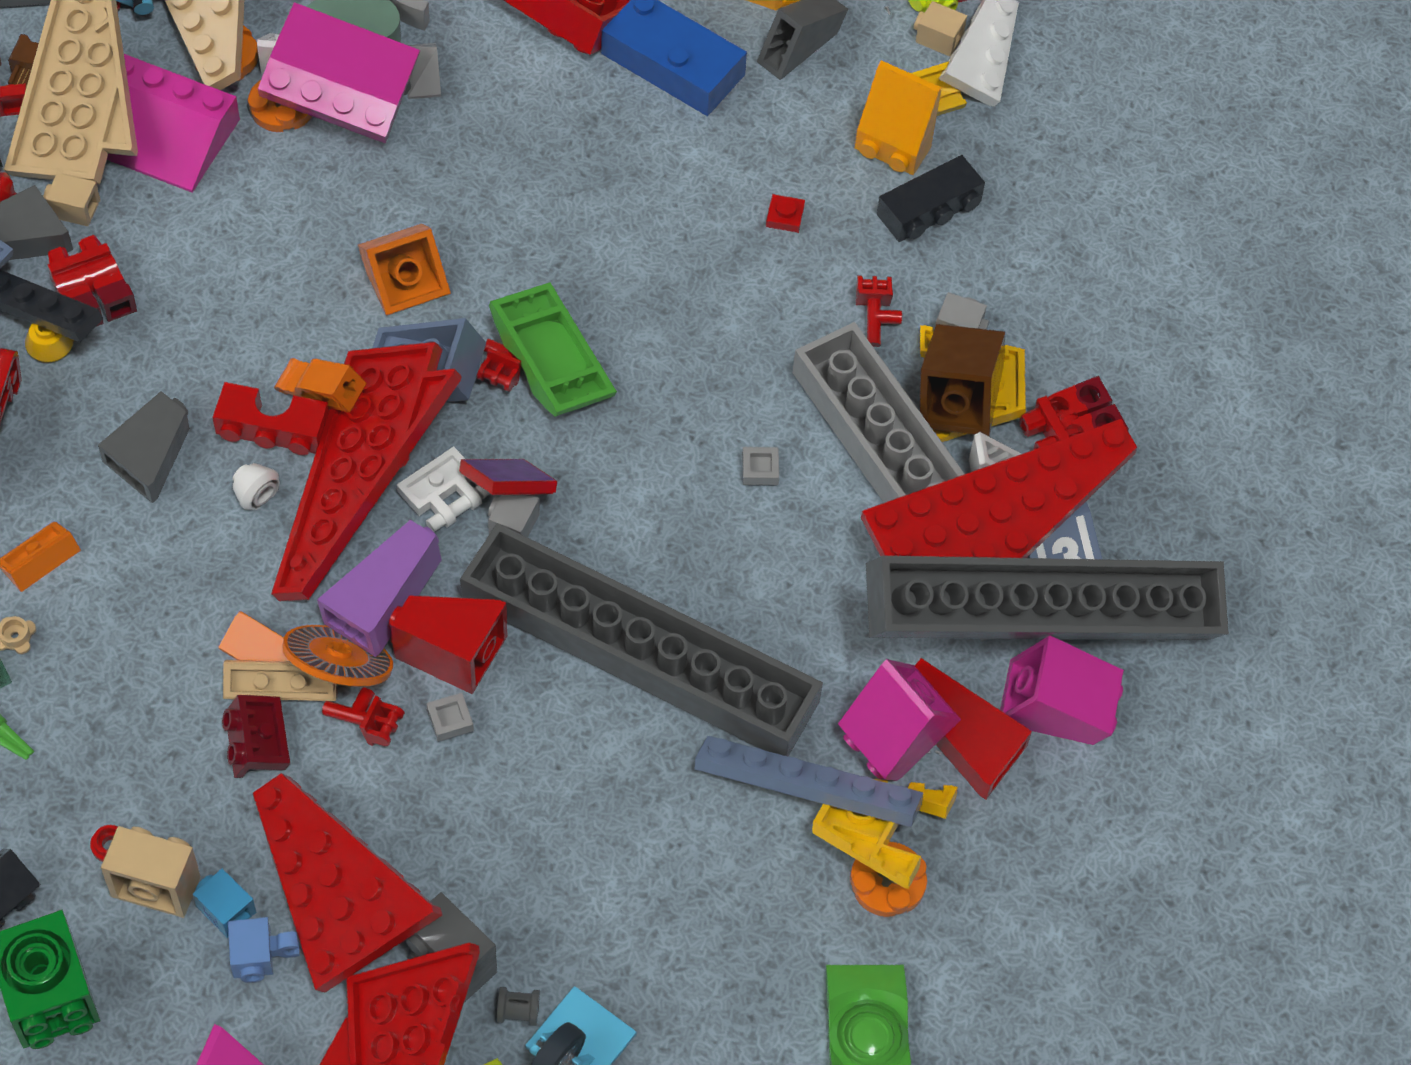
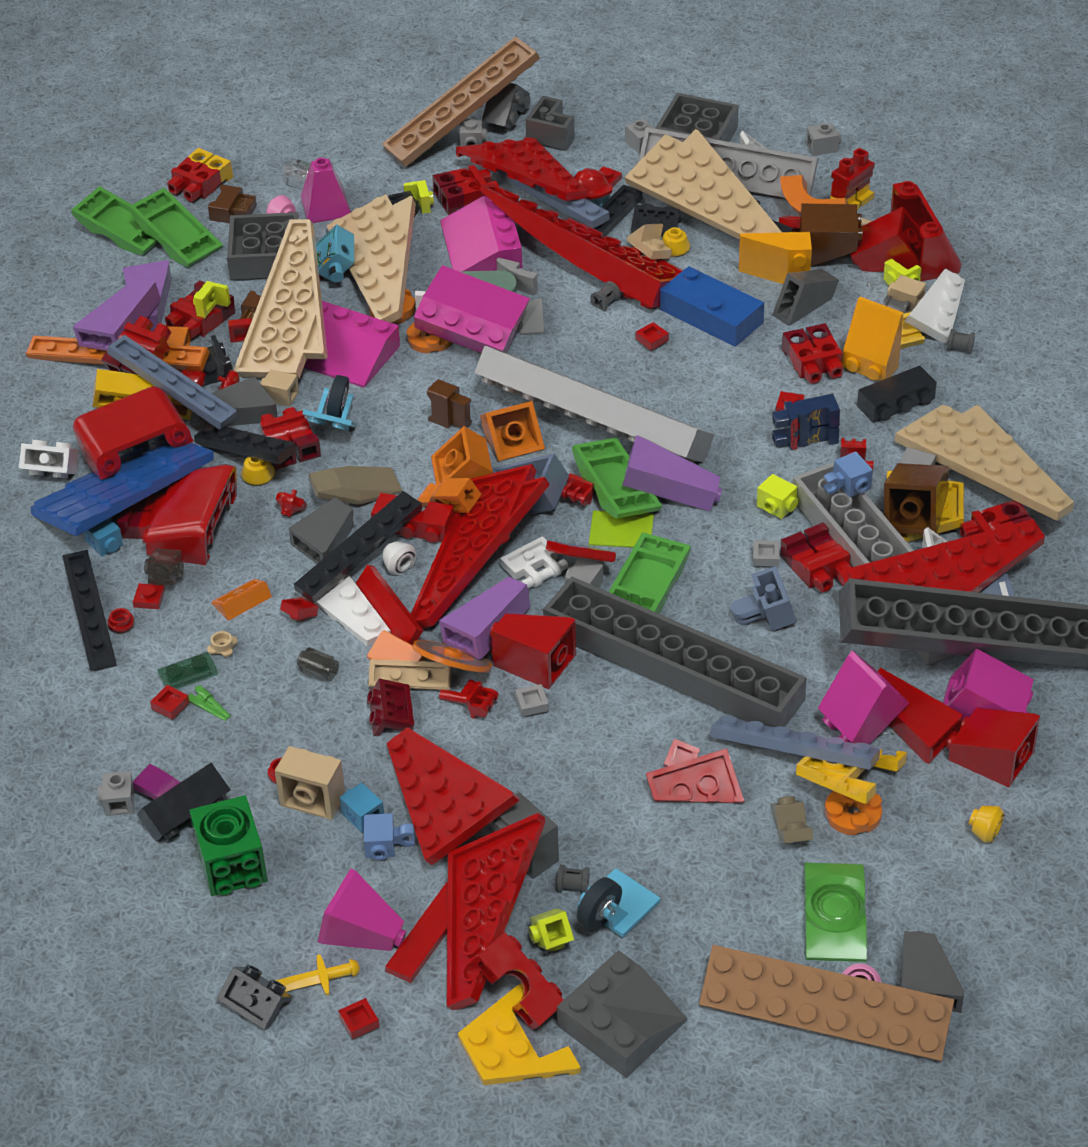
camera: 10 degrees right, 15 degrees down
(97, 397) = (290, 503): none -> red piece
(120, 573) = (299, 608): none -> red plate
(150, 667) = (317, 664): none -> clear smoke brick
(155, 221) = (337, 407): none -> plate
(184, 562) = (352, 610): none -> white wing
(188, 362) = (354, 483): none -> dark tan piece
(197, 475) = (357, 547): none -> black plate
(244, 569) = (388, 605): none -> red tile
(312, 230) = (448, 405): none -> reddish brown piece
(336, 320) = (462, 457): none -> orange slope
(515, 228) = (591, 404): none -> light grey brick
(525, 34) = (605, 296): none -> dark grey bush
(569, 434) = (618, 532): none -> lime piece
(592, 102) = (652, 336): none -> red plate
(602, 506) = (651, 571): none -> bright green slope
(625, 346) = (670, 476): none -> medium lavender slope
(657, 805) = (680, 752): none -> plate
(680, 842) = (697, 780): none -> wing
(765, 549) = (768, 601): none -> sand blue brick
(773, 375) = (777, 496): none -> neon yellow brick
(807, 902) = (791, 820): none -> dark tan slope
(811, 252) = (807, 422): none -> dark blue hips
(816, 130) = (813, 354): none -> red hips
(830, 474) = (815, 556): none -> red hips
(873, 351) = (850, 475): none -> medium blue brick
(925, 51) = (897, 305): none -> dark grey bush
(1015, 107) = (961, 341): none -> dark grey bush
(1049, 297) = (987, 454): none -> tan wing
(1065, 897) = (987, 822): none -> yellow cone
(1072, 772) = (995, 743): none -> red slope

